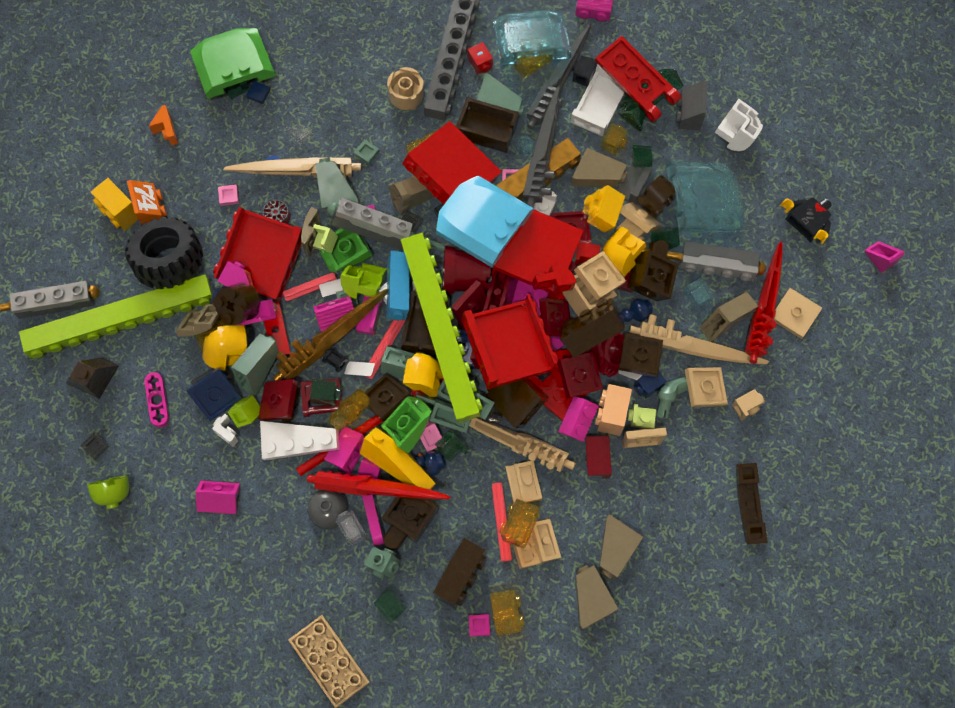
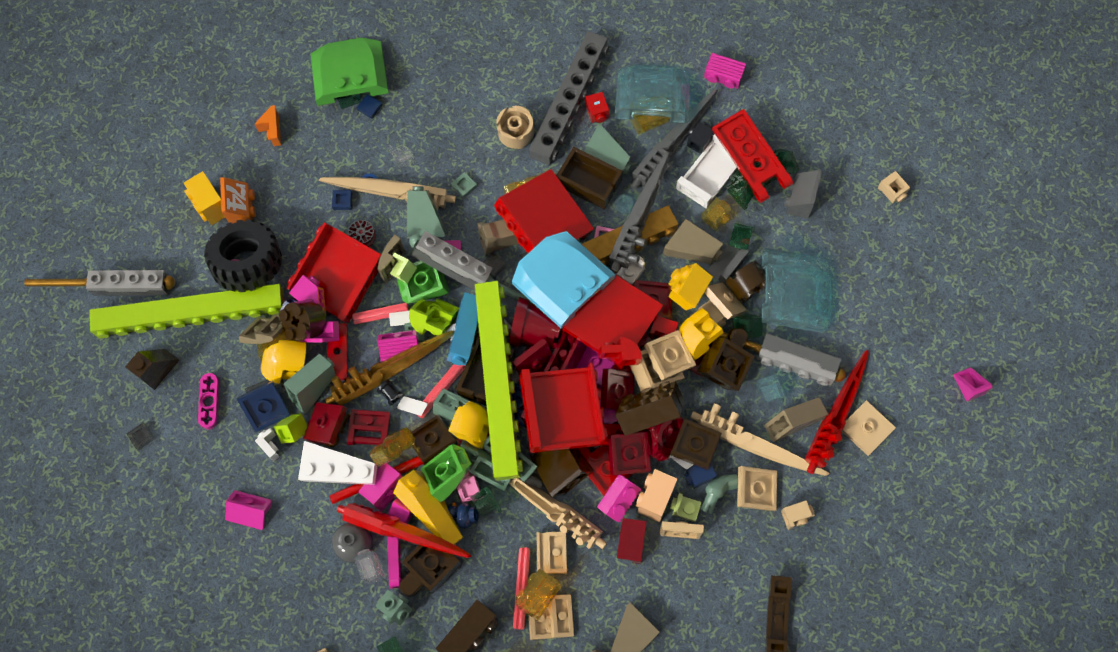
camera: 15 degrees right, 0 degrees up
(109, 491) = (144, 484): lime cylinder -> none
(228, 195) = (319, 206): bright pink tile -> none
(249, 185) = (341, 199): none -> dark blue tile
(324, 392) = (371, 424): clear green brick -> none
(369, 322) = (431, 361): dark pink panel -> none
(638, 311) = (705, 397): dark blue animal -> none
(740, 126) = (848, 223): white brick -> none
(775, 88) = (895, 182): none -> tan brick
(809, 217) = (902, 330): torso -> none

